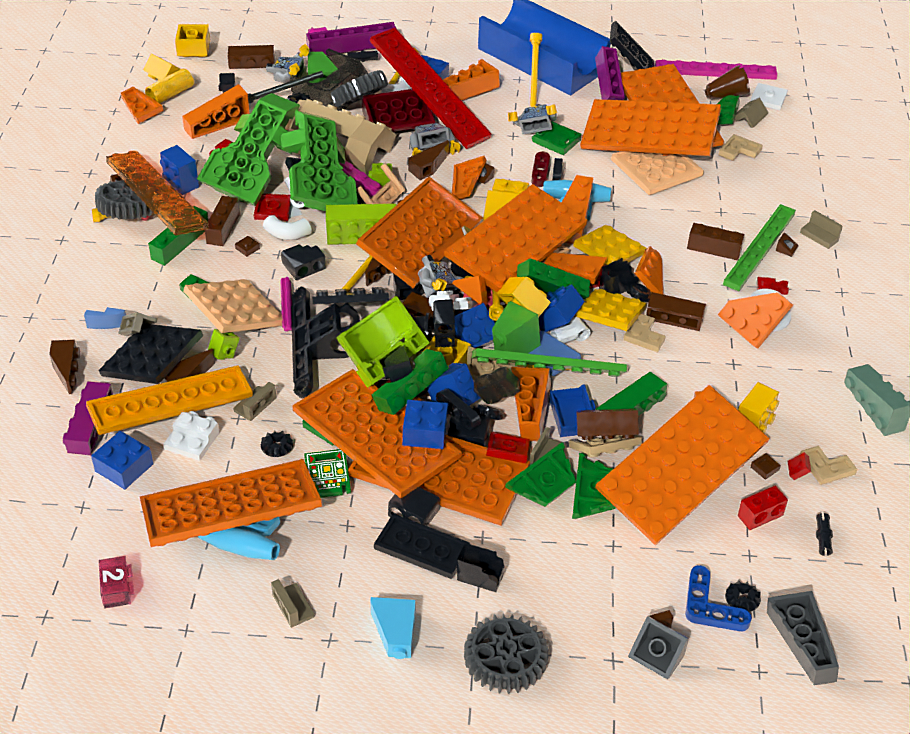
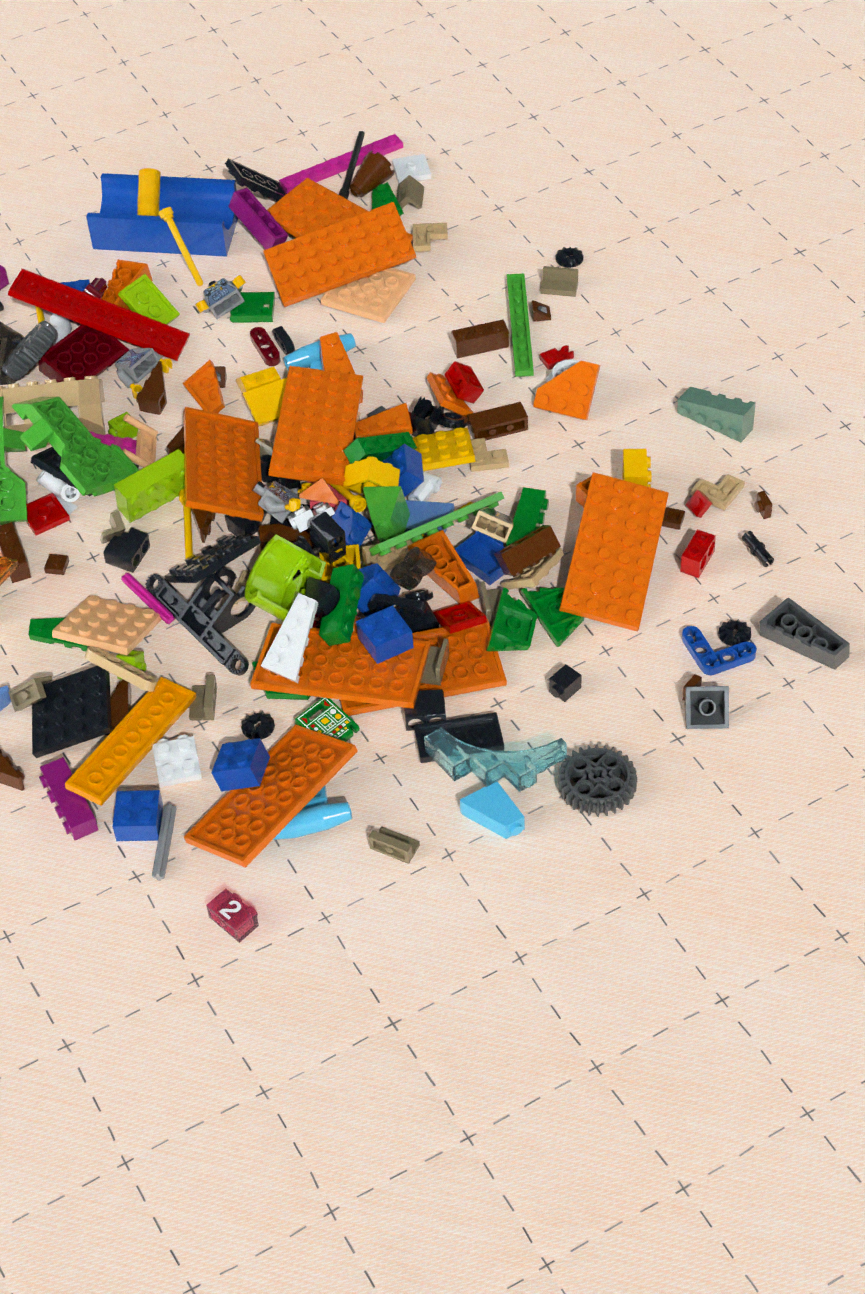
camera: 30 degrees left, 5 degrees up
(124, 492) = (164, 842): none -> light grey axle
(208, 341) = (121, 668): none -> tan beam
(227, 464) = (240, 764): none -> blue brick
(285, 230) = (81, 530): white cylinder -> none
(308, 237) = (117, 528): none -> dark tan panel
(346, 386) = (289, 644): none -> white wing
(419, 584) = (489, 765): none -> clear light blue arch
(445, 70) = (96, 287): none -> dark red piece
(453, 473) = (436, 664): none -> dark tan panel
(472, 563) = (522, 727): black piece -> none
(477, 96) = (147, 300): none -> lime plate
(540, 18) = (148, 192): none -> yellow piece
(549, 552) = (565, 683): none -> black brick
(599, 388) = (493, 524): none -> tan torso
(610, 244) = (392, 389): yellow plate -> none
(672, 267) = (464, 382): none -> red brick
(698, 90) = (344, 192): none -> pearl dark grey bar
(847, 216) = (571, 261): none -> black gear
(859, 498) = (763, 505): none -> reddish brown plate

